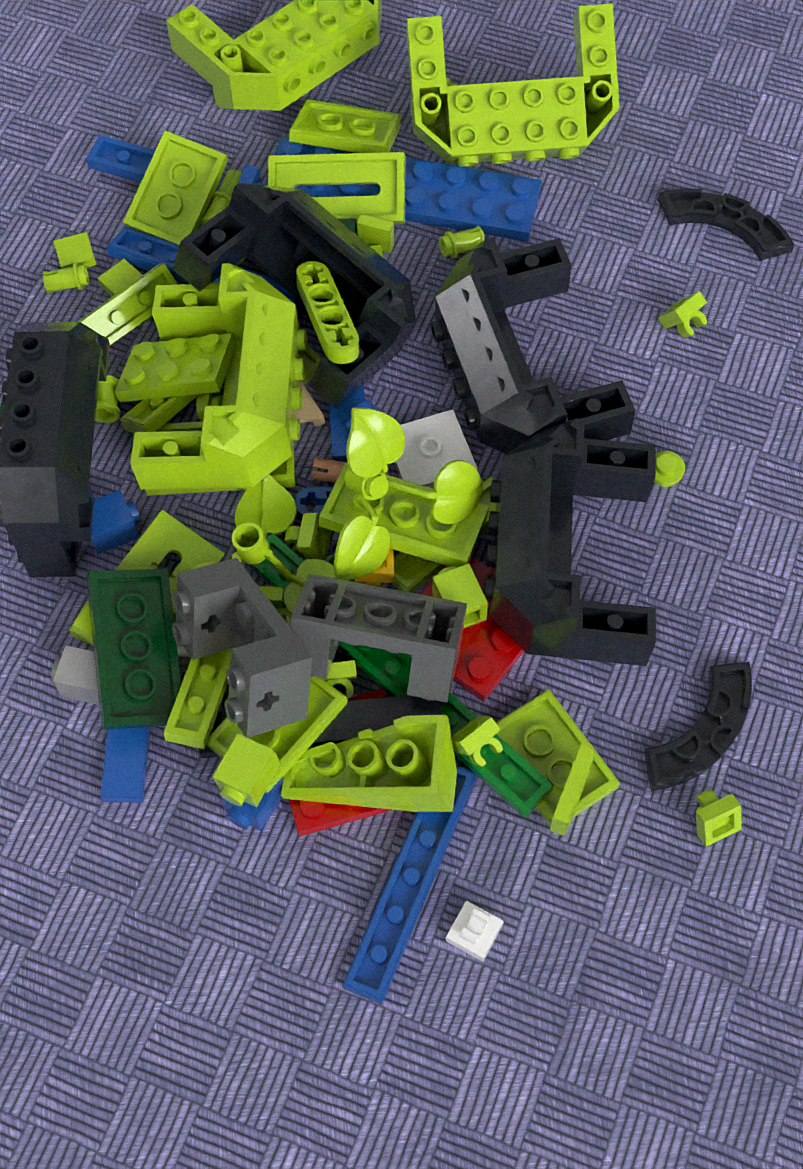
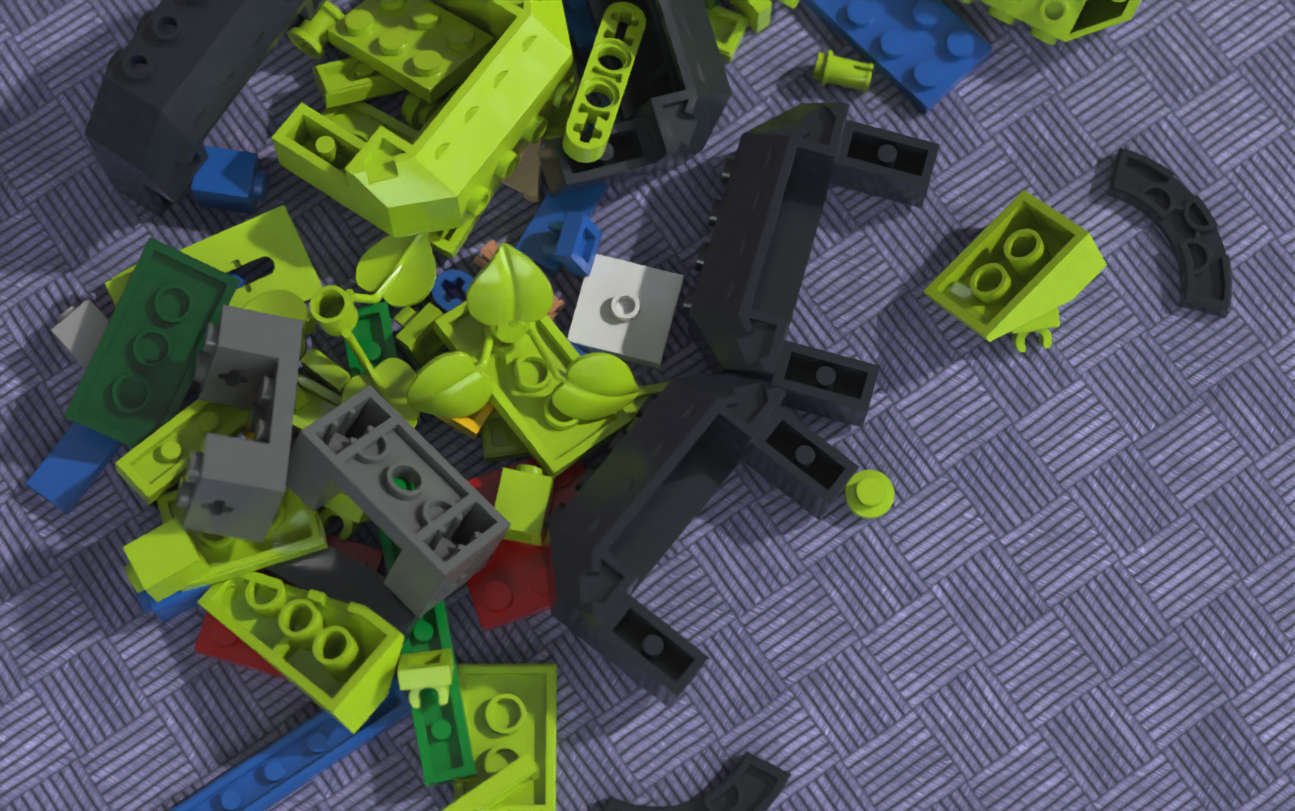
camera: 30 degrees right, 10 degrees up
(659, 280) = (1017, 269): none -> lime slope

